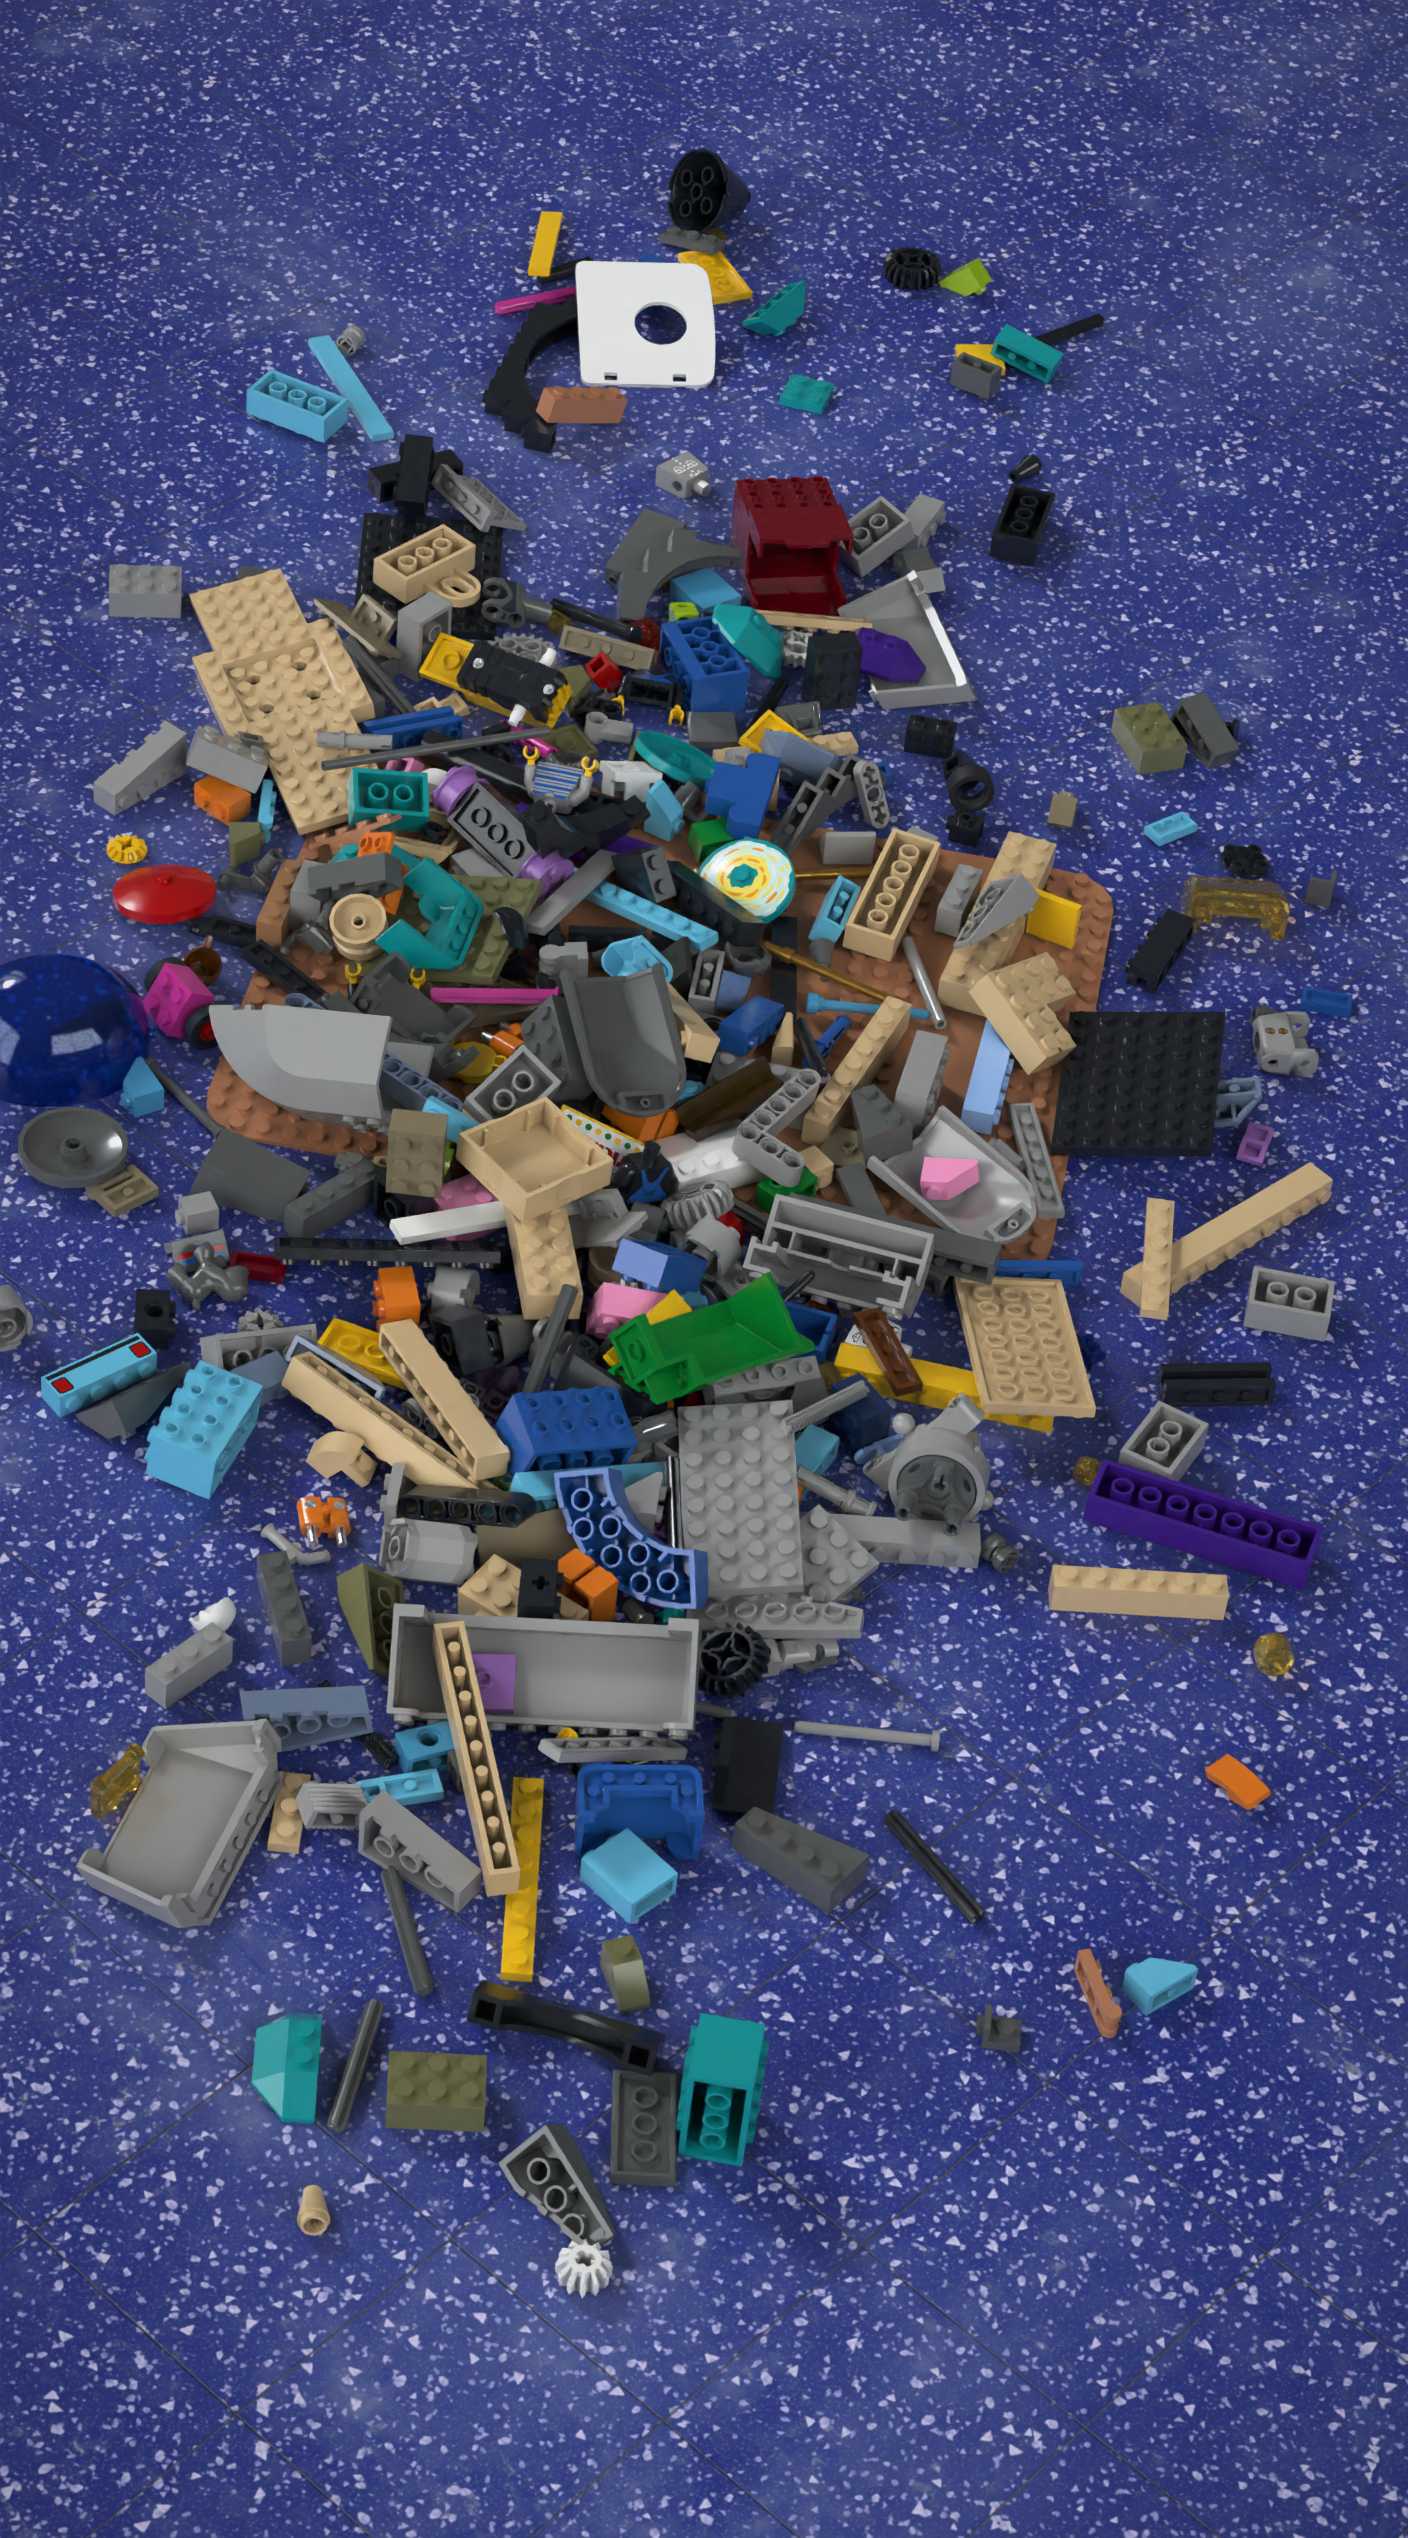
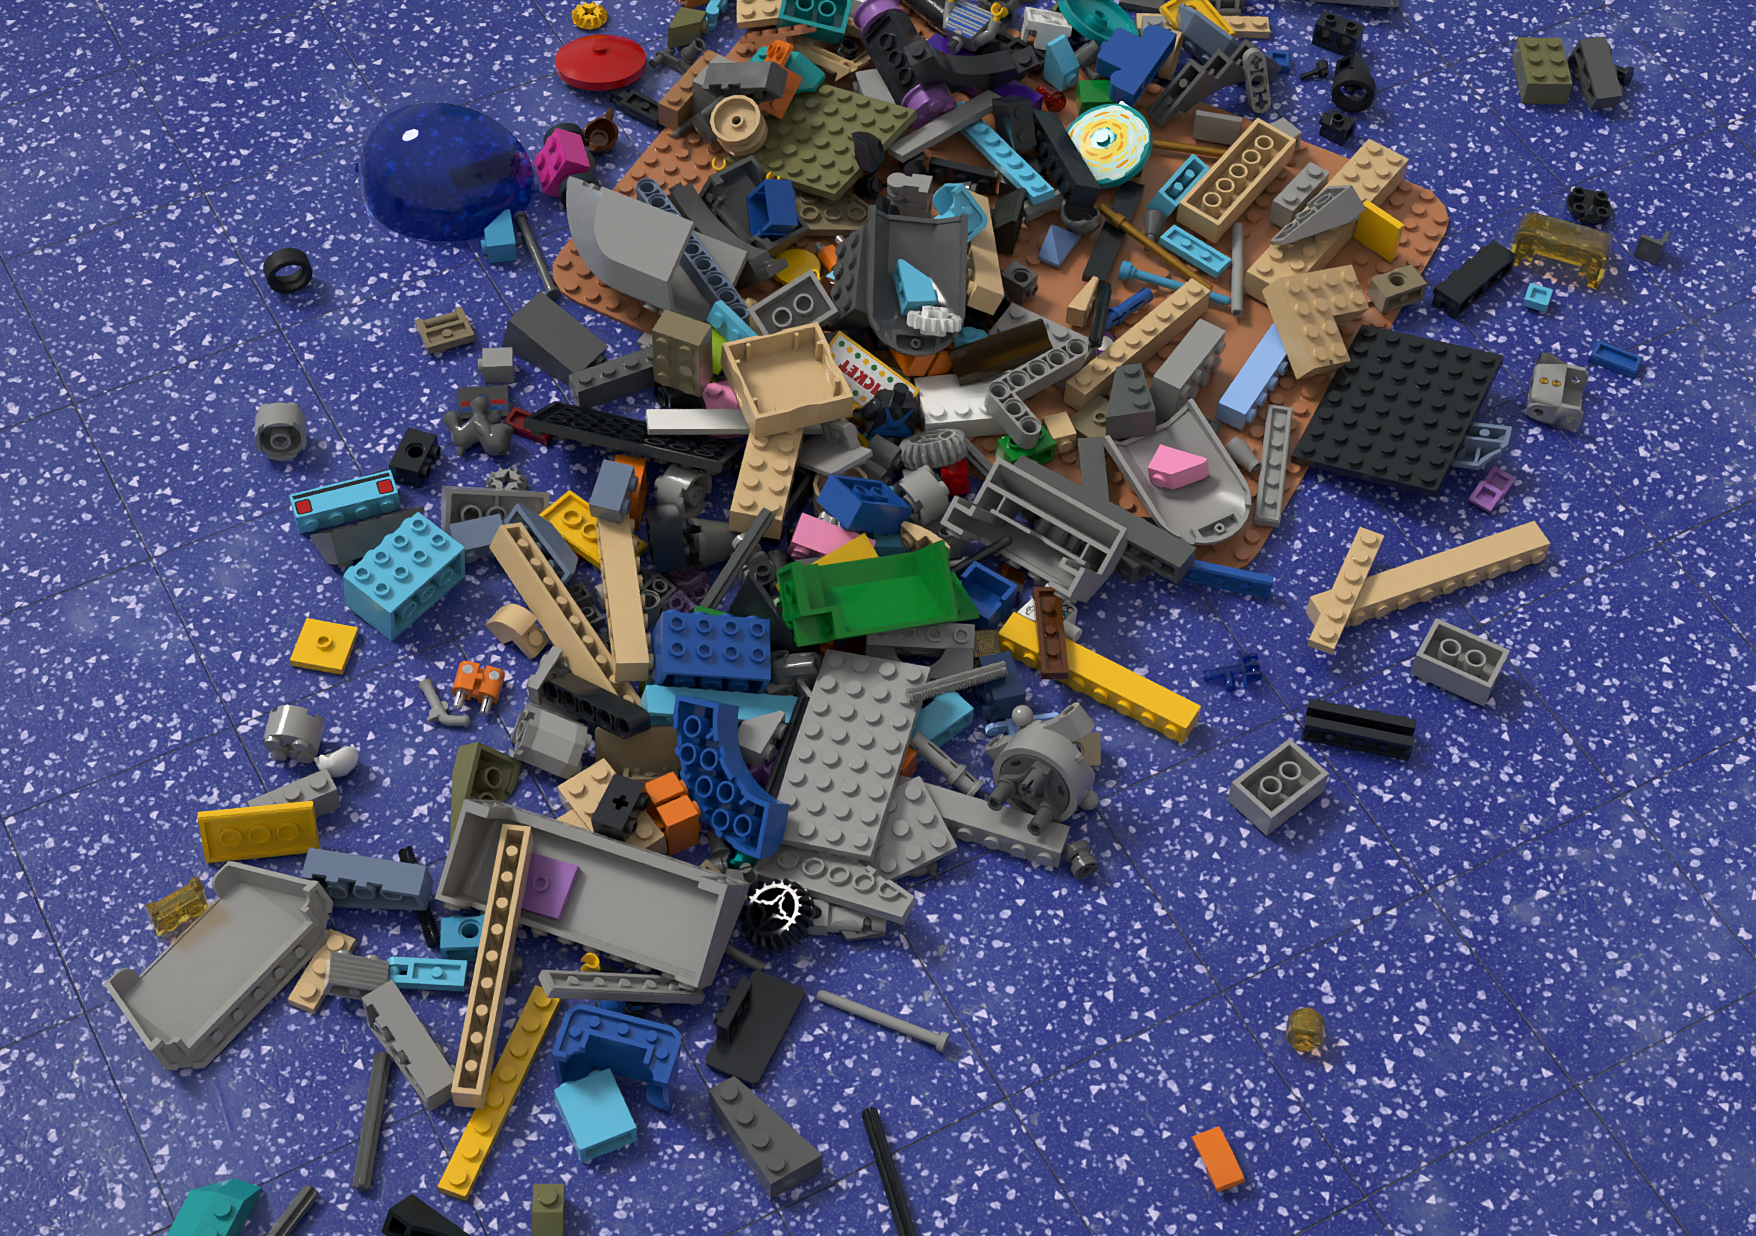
camera: 20 degrees right, 10 degrees up
(72, 1147) = (416, 282): dark grey dish -> none
(142, 1517) = (324, 646): none -> yellow plate
(158, 1599) = (293, 734): none -> light grey brick
(169, 1695) = (258, 831): none -> yellow tile
(280, 970) = (667, 154): black plate -> none
(283, 1608) = (402, 766): dark grey brick -> none
(396, 1301) = (612, 491): none -> sand blue brick
(435, 1002) = (772, 209): none -> blue piece
(453, 919) = (825, 126): teal windscreen -> none
(491, 995) = (831, 210): dark pink axle -> none
(624, 1049) = (912, 288): none -> medium azure slope
(660, 1075) = (934, 321): none -> white gear
(670, 846) = (1052, 98): none -> clear red cone
(706, 981) = (1030, 235): light grey brick -> none
(718, 1289) = (917, 537): none -> tan slope
(750, 1025) = (1051, 283): blue brick -> none
(875, 972) = (1195, 251): none -> medium azure plate
(924, 775) = (1321, 70): none -> black hand
(1023, 1347) = (1183, 655): tan plate -> none
(1063, 810) = (1433, 126): dark tan slope -> none
(1086, 1470) = (1199, 791): clear yellow bush -> none
(1092, 971) = (1396, 288): none -> dark tan brick
(1138, 1592) = (1197, 932): tan brick -> none
(1170, 828) = (1529, 161): medium azure plate -> none
(1203, 1523) = (1288, 875): dark purple brick -> none
(1229, 957) = (1537, 297): none -> medium azure plate

